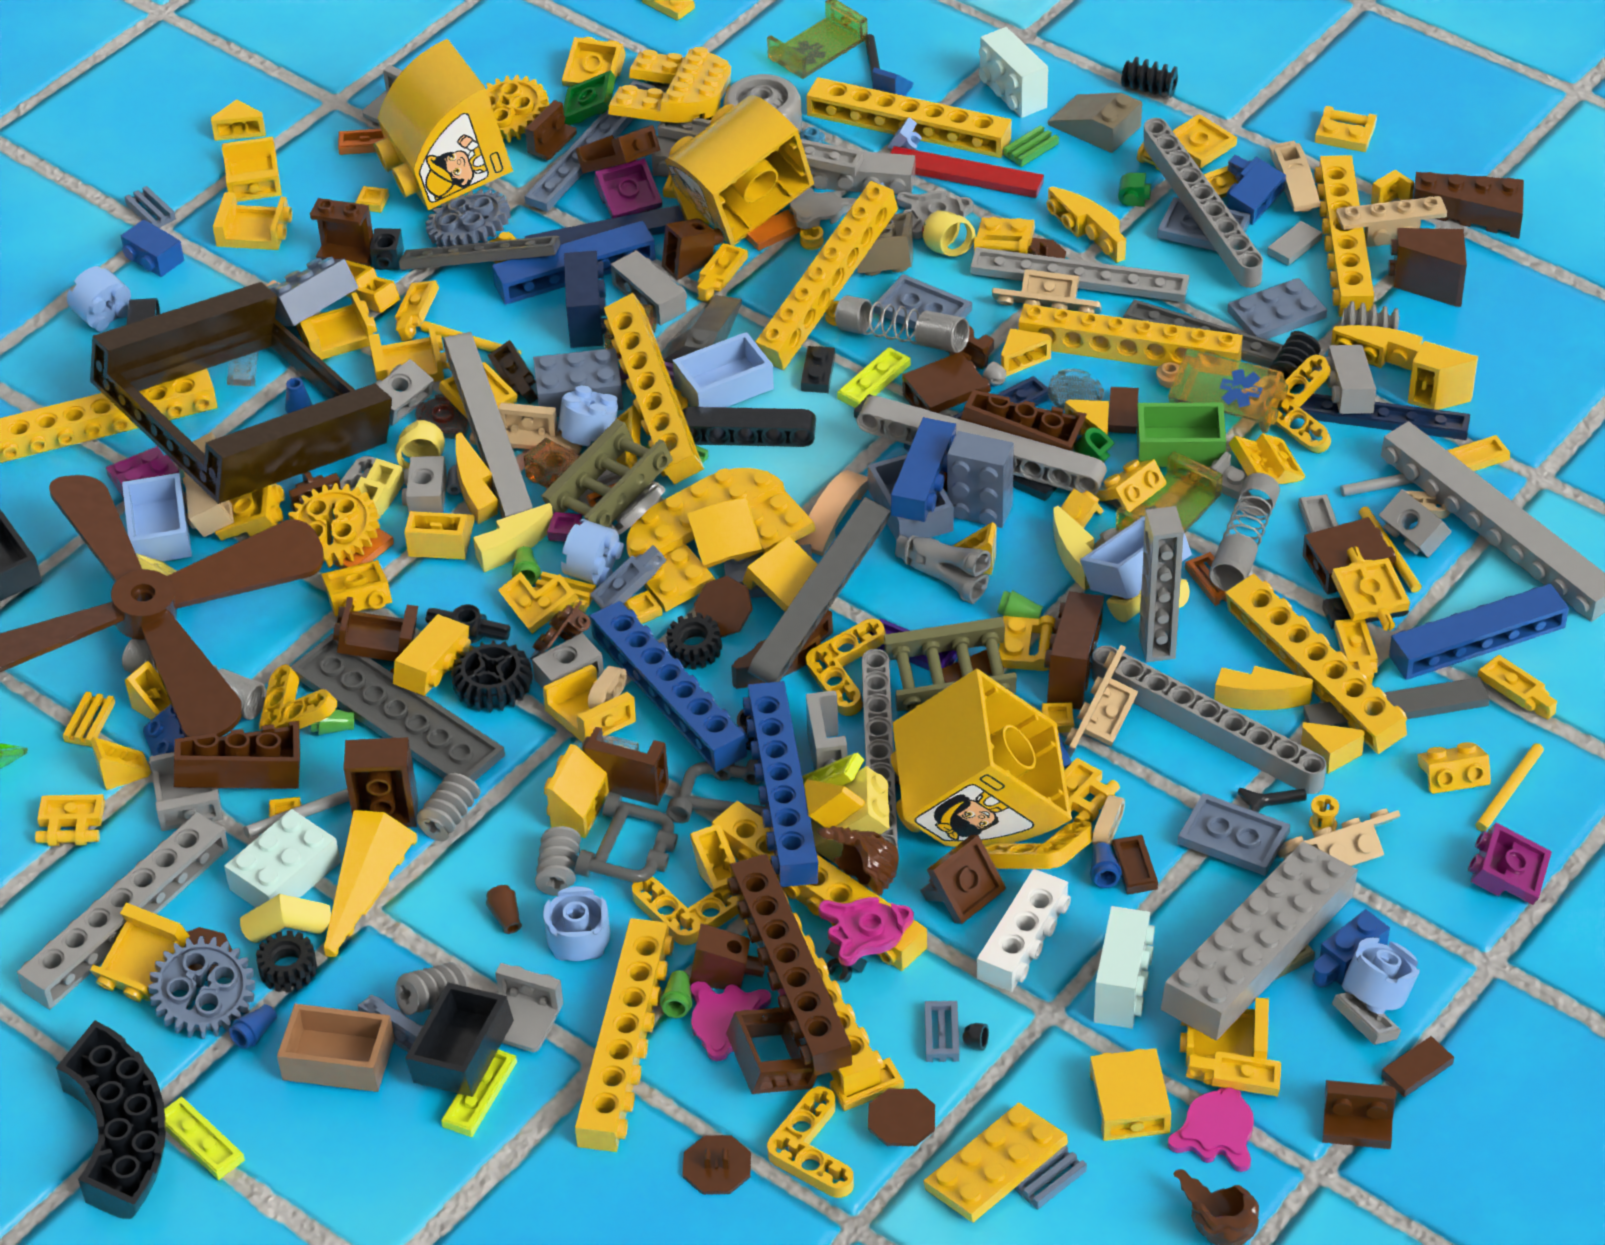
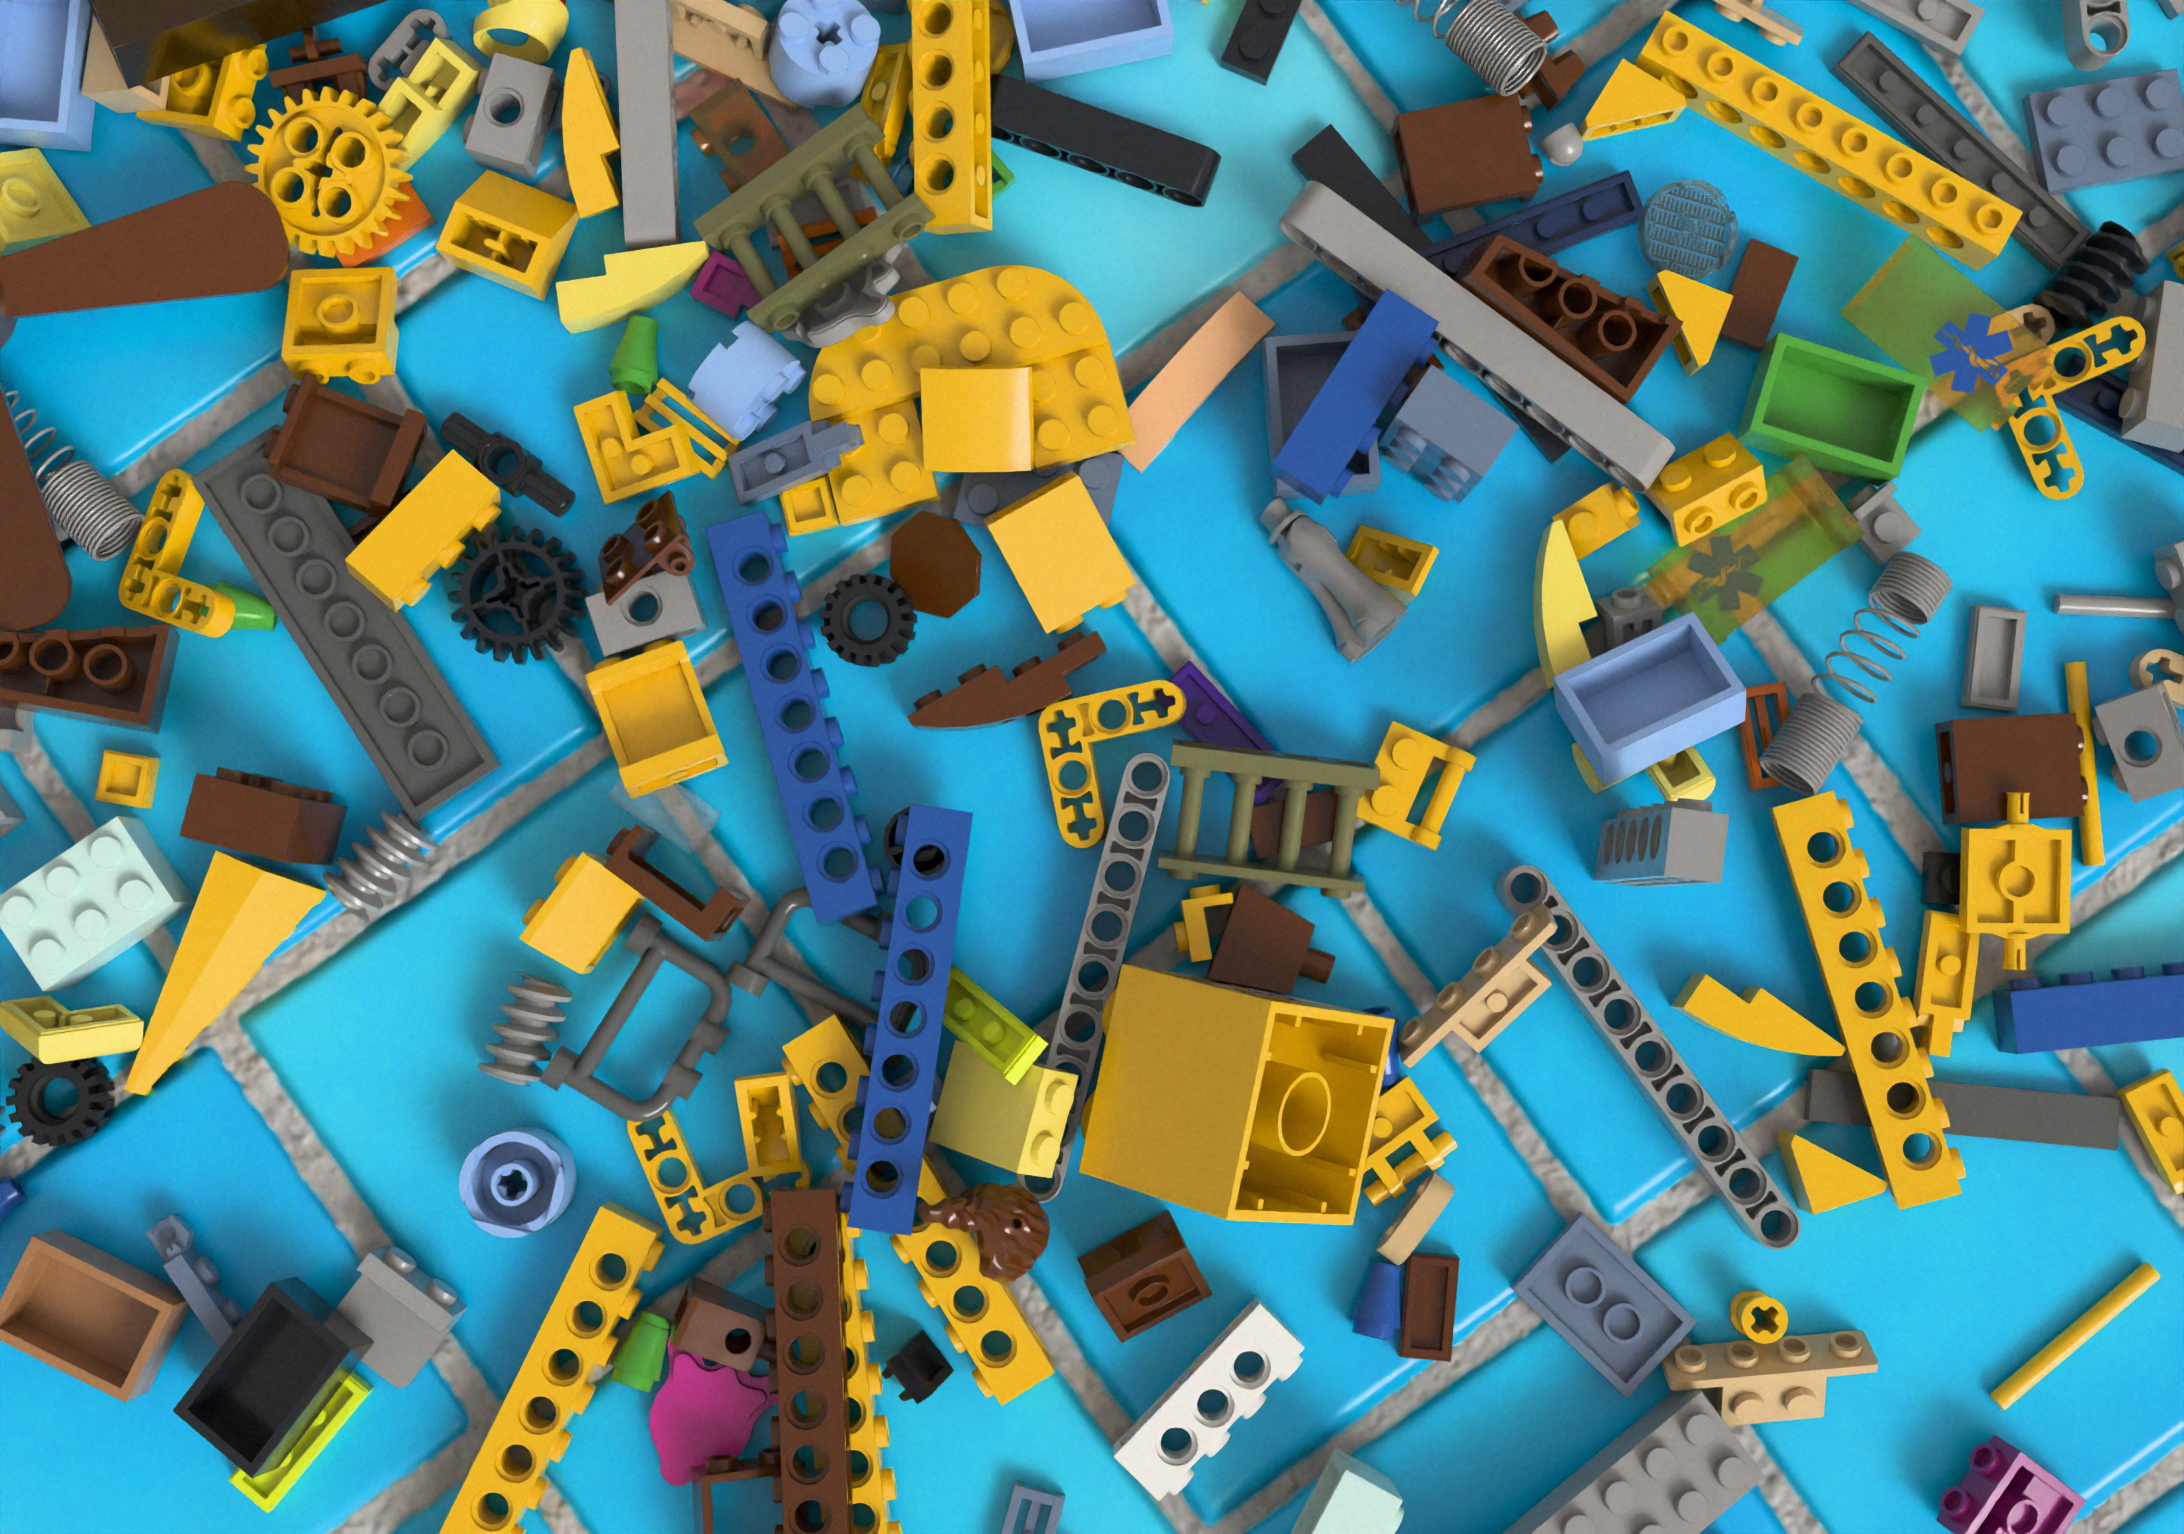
camera: 10 degrees right, 40 degrees up
(304, 810) = (124, 806): light grey bar -> none
(422, 988) = (258, 1244): light grey piece -> none
(504, 907) = (421, 1097): reddish brown cone -> none
(607, 686) = (689, 707): tan beam -> none
(819, 592) = (1096, 615): dark grey beam -> none
(823, 723) = (994, 972): light grey panel -> none
(830, 803) = (967, 1105): yellow slope -> none
(865, 926) = (960, 1351): dark pink tile -> none
(874, 377) = (1353, 79): neon yellow tile -> none
(1018, 606) = (1423, 710): bright green cone -> none
(1049, 855) = (1281, 1272): yellow beam -> none
(1061, 714) = (1409, 962): yellow tile -> none
(1073, 648) = (1487, 837): reddish brown wedge -> none
(1094, 444) = (1672, 387): green plate -> none
(1167, 373) = (1855, 246): tan plate -> none
(1259, 801) = (1668, 1240): black piece -> none
(1267, 456) = (1955, 499): yellow slope -> none
(1455, 767) = (2005, 1273): yellow bracket -> none

